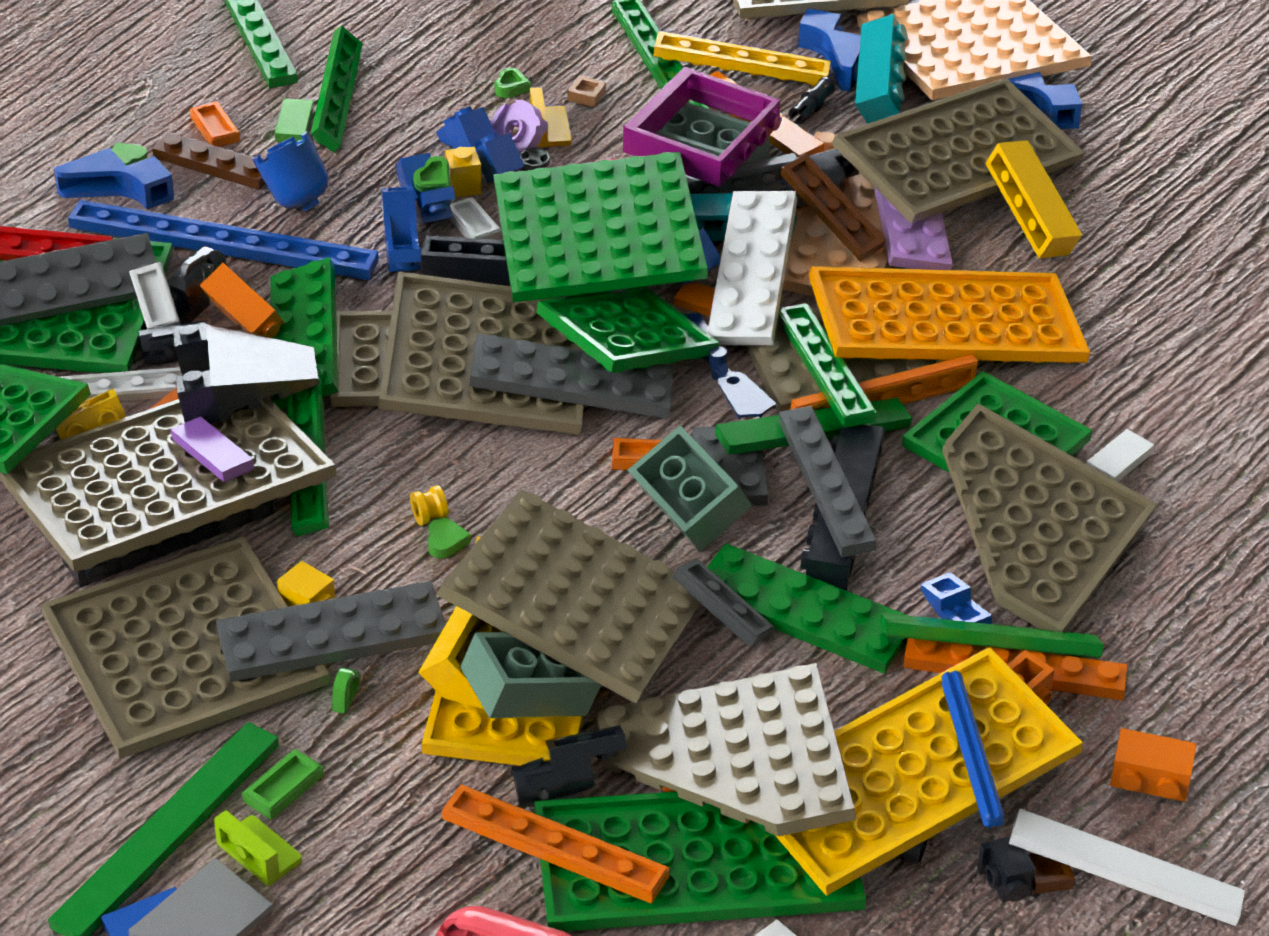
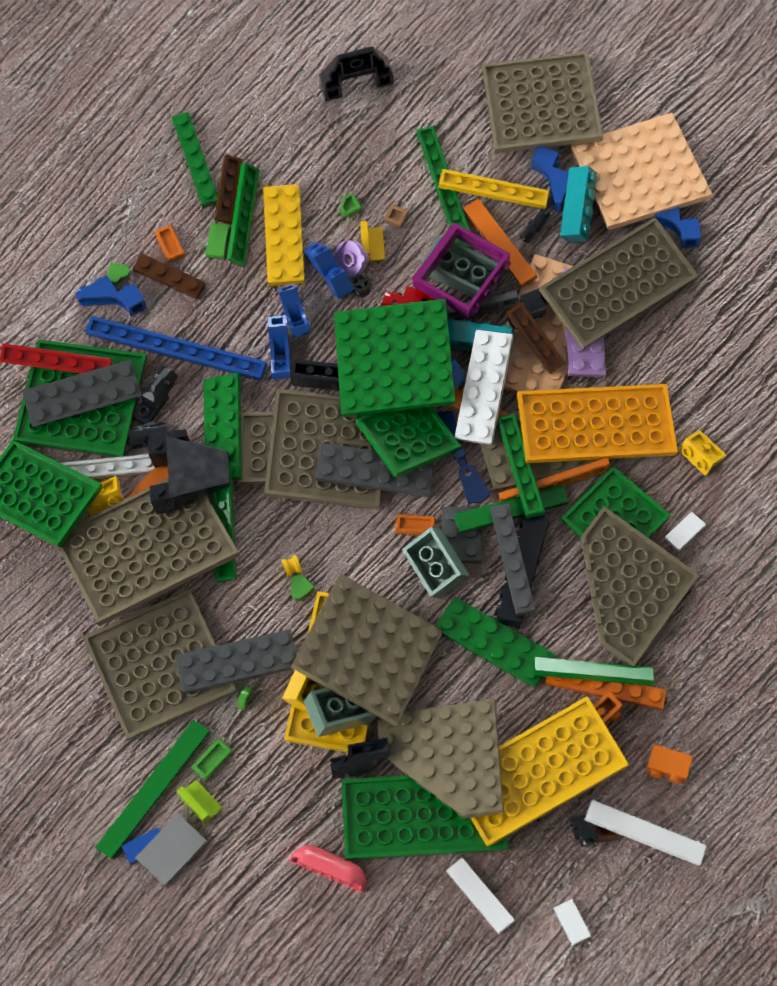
camera: 10 degrees right, 25 degrees up
(154, 296) = (136, 406): white tile -> none
(212, 449) = (171, 536): tile -> none
(241, 303) = (187, 414): orange slope -> none
(294, 173) = (215, 298): blue cylinder -> none
(305, 585) = (224, 629): yellow brick -> none
(311, 61) = (227, 189): none -> reddish brown plate
(402, 110) = (283, 235): none -> yellow plate
(433, 175) = (299, 305): bright green tile -> none
(464, 171) = (317, 293): yellow brick -> none
(473, 220) = (322, 331): white tile -> none
(556, 843) = (350, 809): orange tile -> none
(723, 602) = (449, 644): dark grey tile -> none
(953, 601) = (578, 643): blue slope -> none
(972, 749) = (569, 766): blue axle -> none
(1033, 199) = (659, 326): yellow brick -> none
(1128, 357) = (701, 452): none -> yellow bracket

